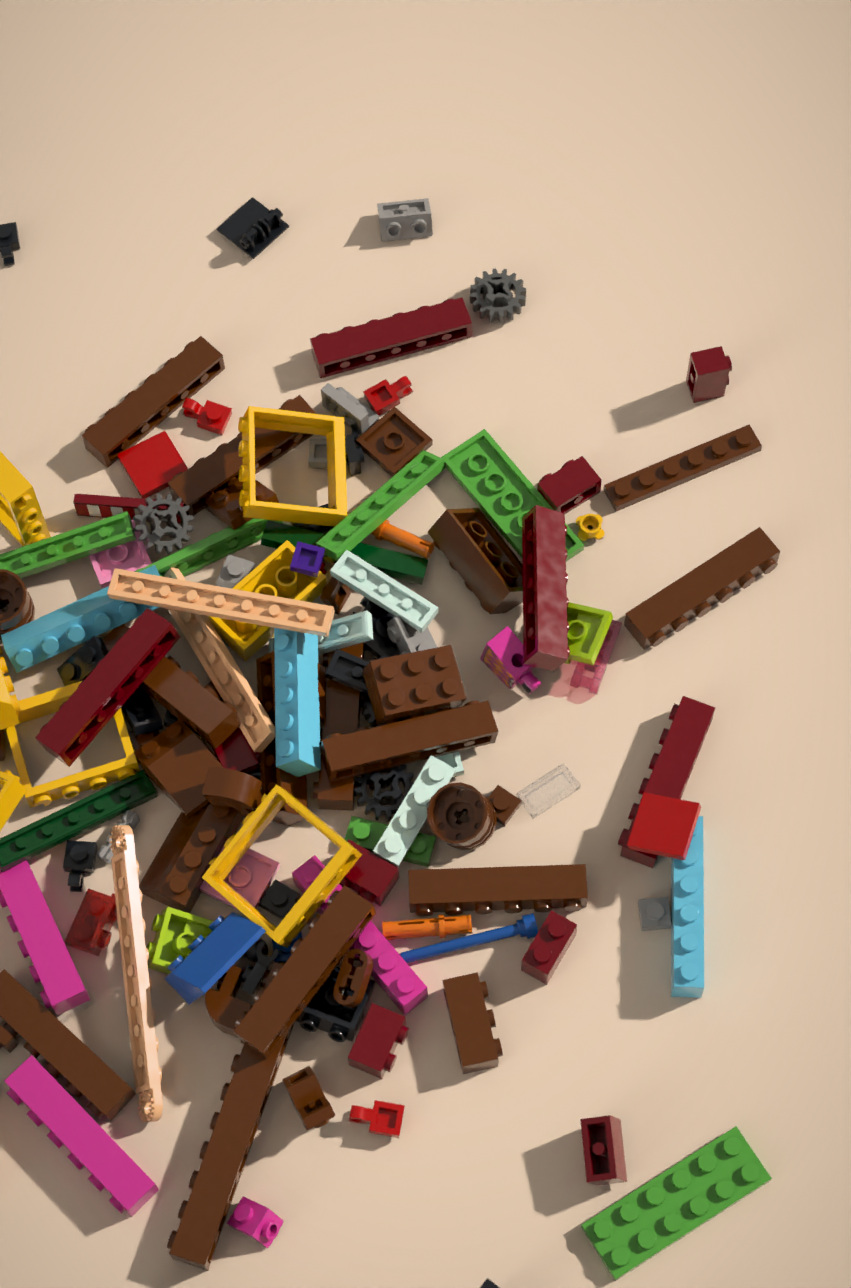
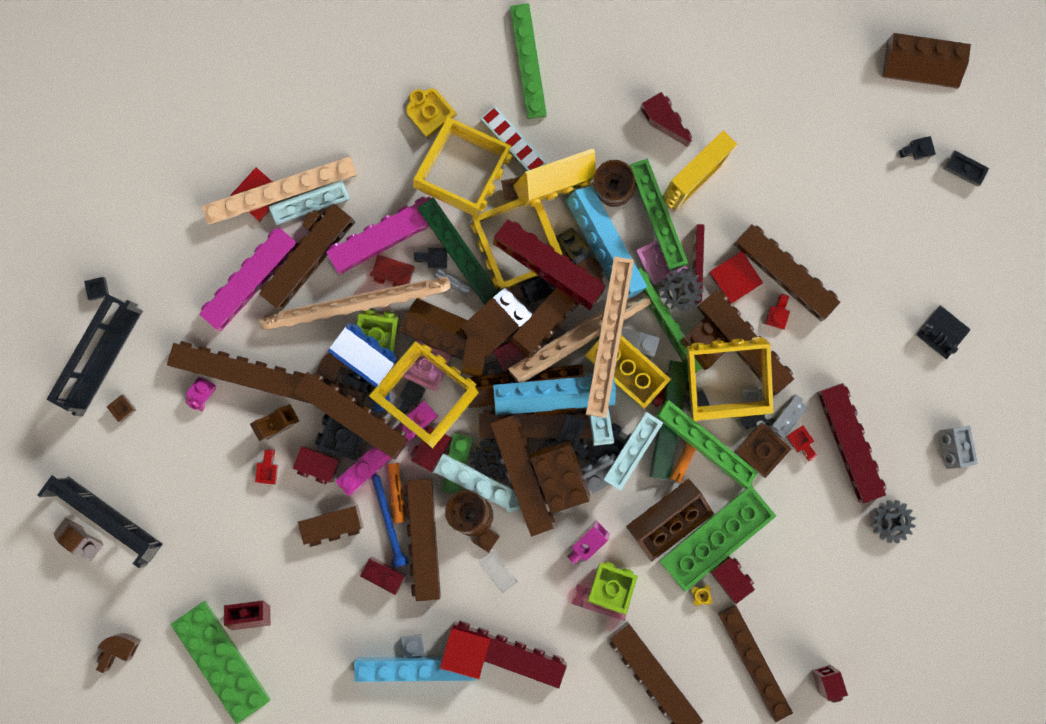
camera: 85 degrees right, 20 degrees up
(39, 189) = (966, 168): none -> black plate
(307, 559) = (653, 395): dark purple plate -> none
(335, 594) = (635, 414): reddish brown plate -> none
(353, 978) = (350, 451): reddish brown beam -> none
(544, 589) = (642, 566): dark red brick -> none

